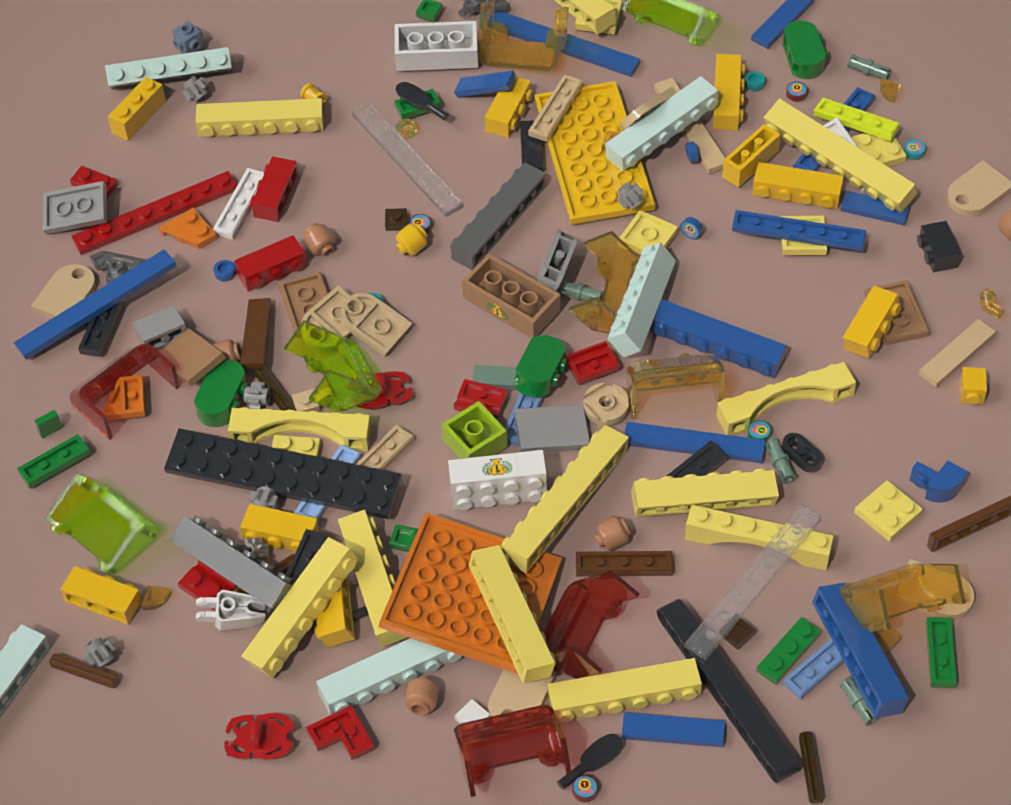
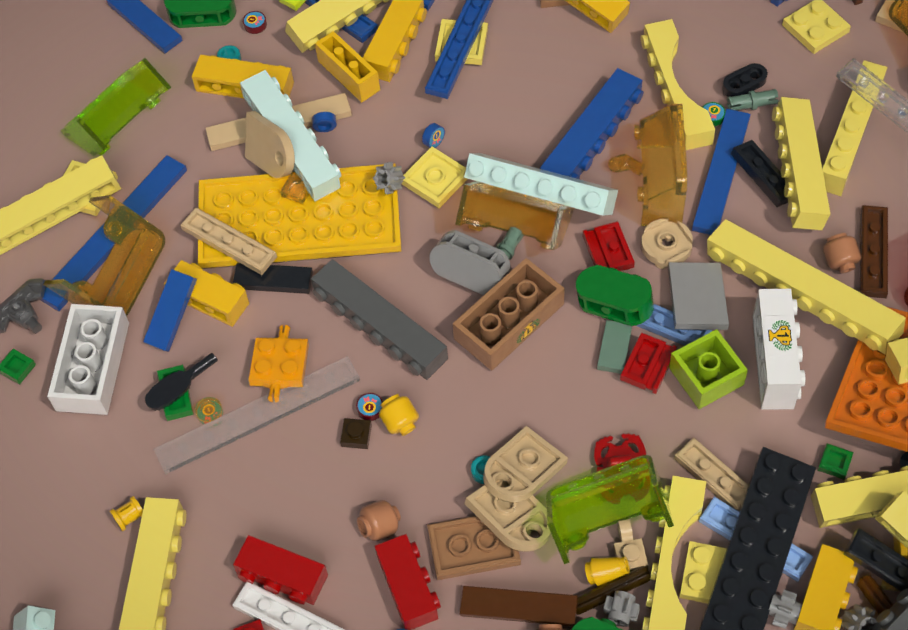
camera: 80 degrees left, 5 degrees up
(288, 382) = (606, 569): none -> yellow cone
(450, 159) = (278, 362): none -> light orange plate

